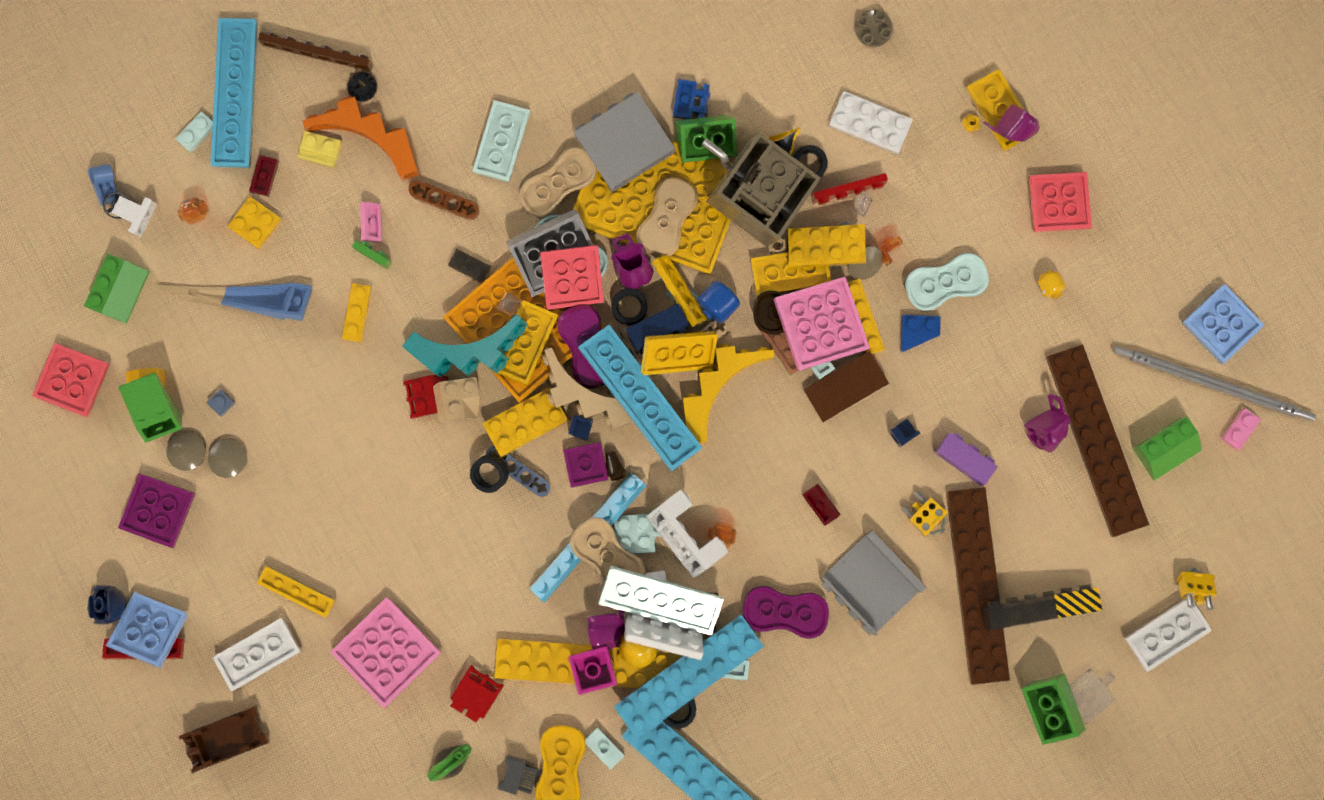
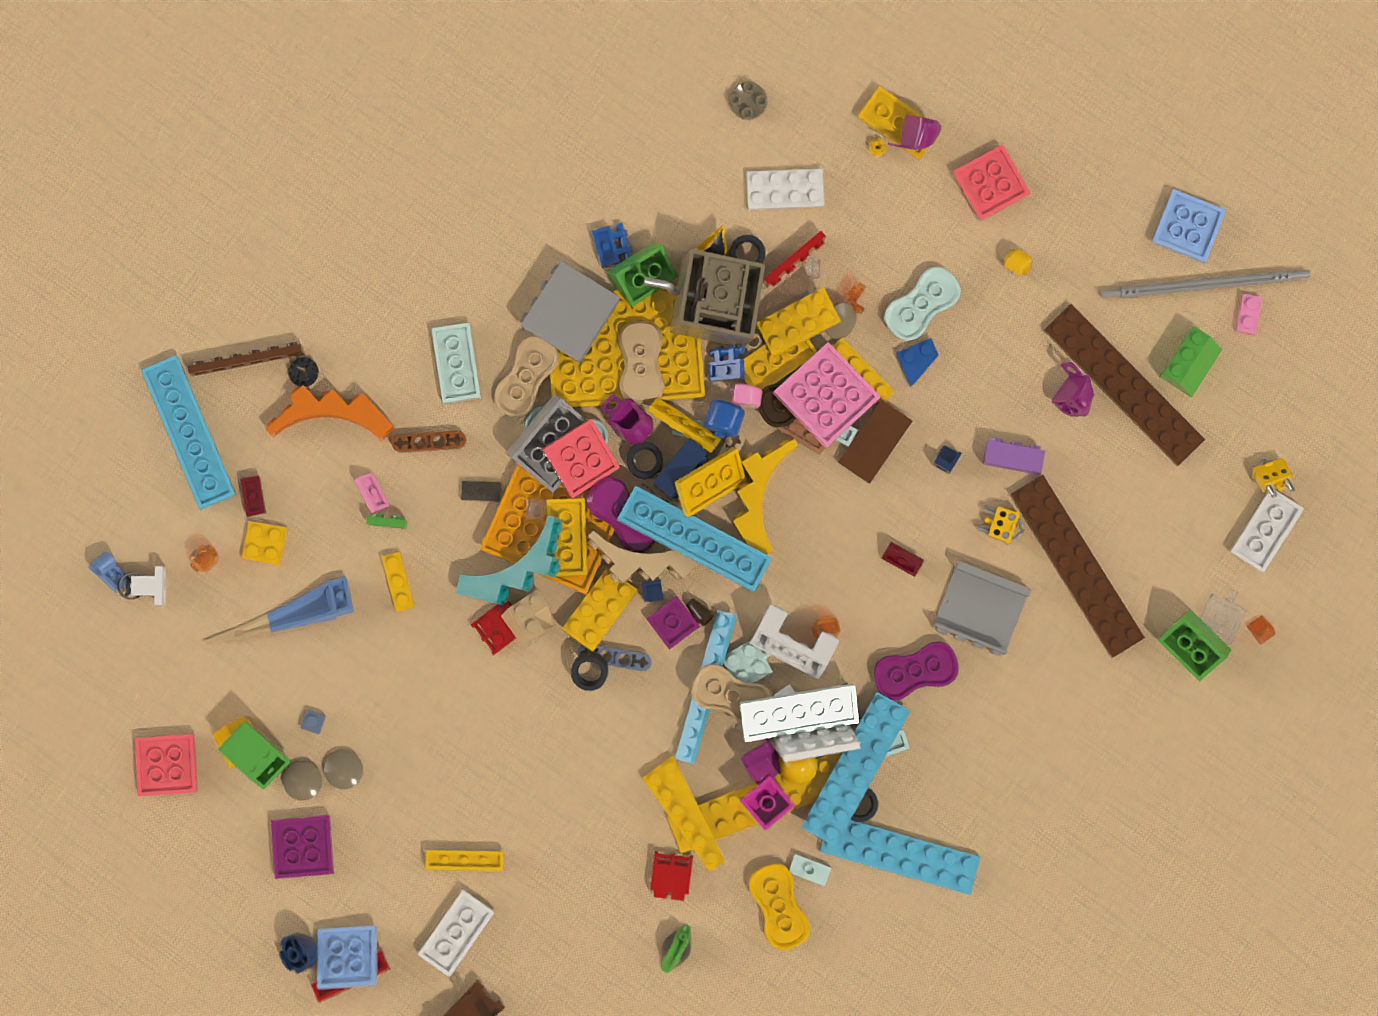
camera: 20 degrees left, 0 degrees up
(116, 288) = (168, 662): bright green slope -> none
(195, 132) = (170, 485): light aqua plate -> none
(319, 149) = (292, 447): light yellow plate -> none
(385, 652) = (572, 876): bright pink plate -> none
(513, 631) = (677, 800): none -> yellow wing
(518, 776) = (744, 931): dark grey piece -> none
(743, 259) = (726, 369): none -> plate
(748, 290) = (746, 396): none -> bright pink animal
(1041, 608) = (1143, 559): clear smoke brick -> none
(1121, 723) = (1261, 629): none -> clear orange slope

